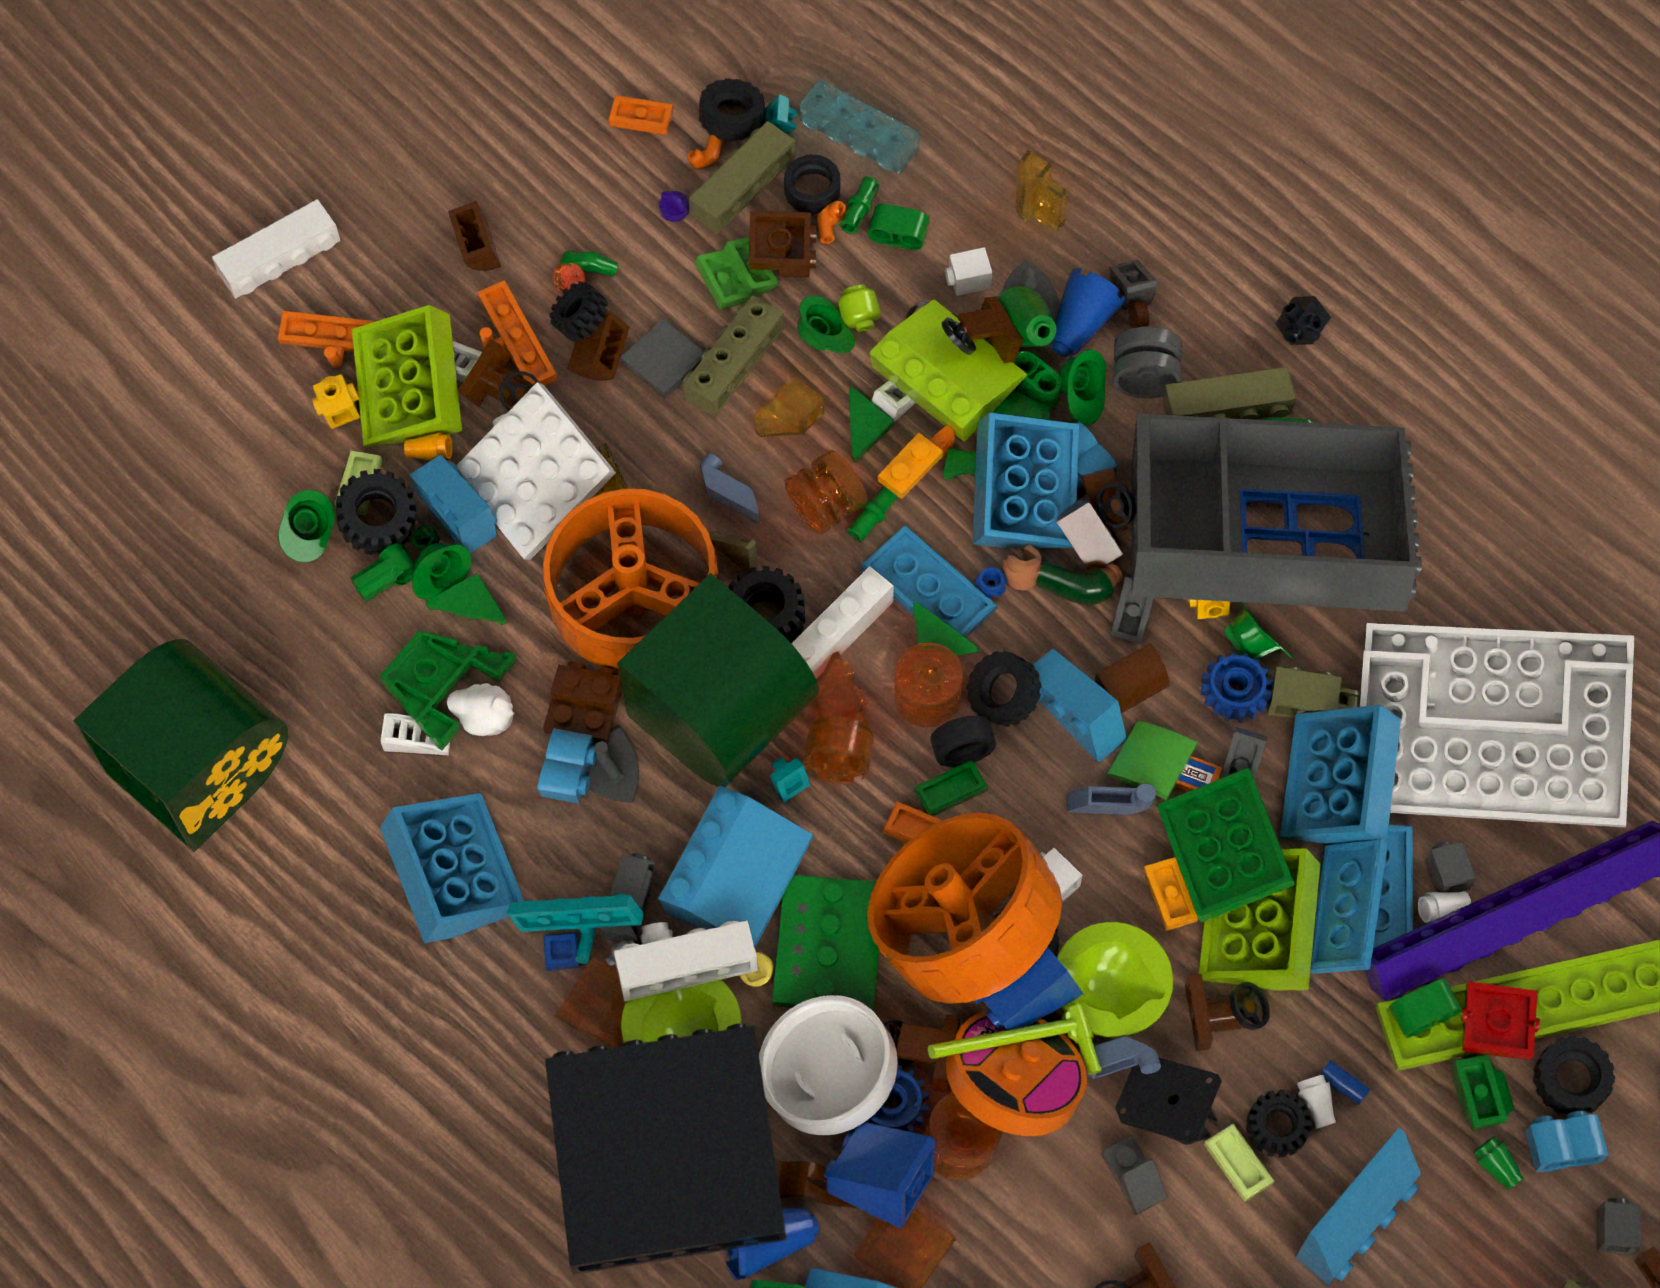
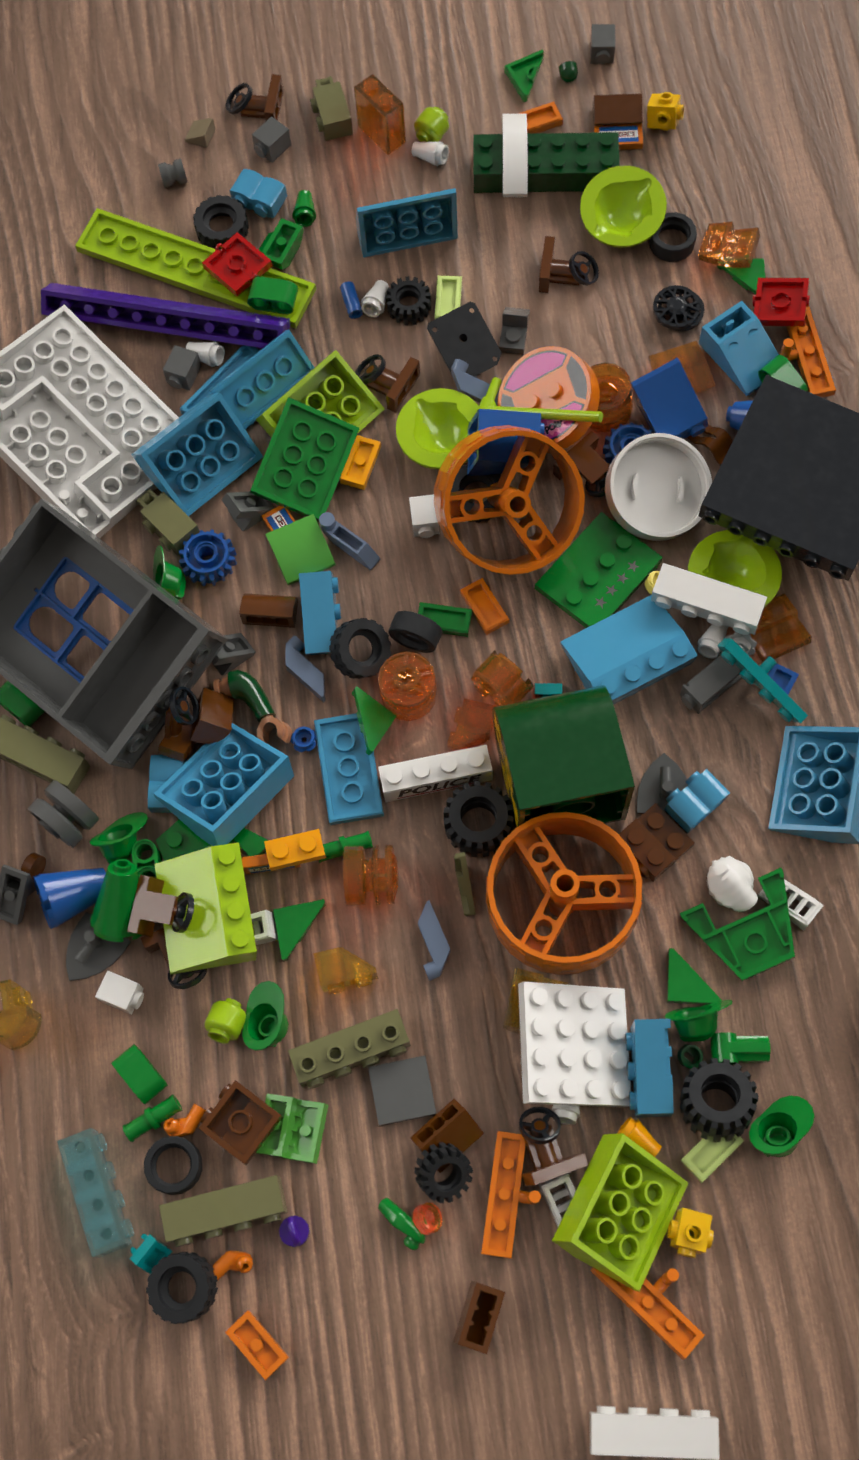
camera: 140 degrees left, 5 degrees up
(1037, 643) = (303, 669): none -> sand blue piece

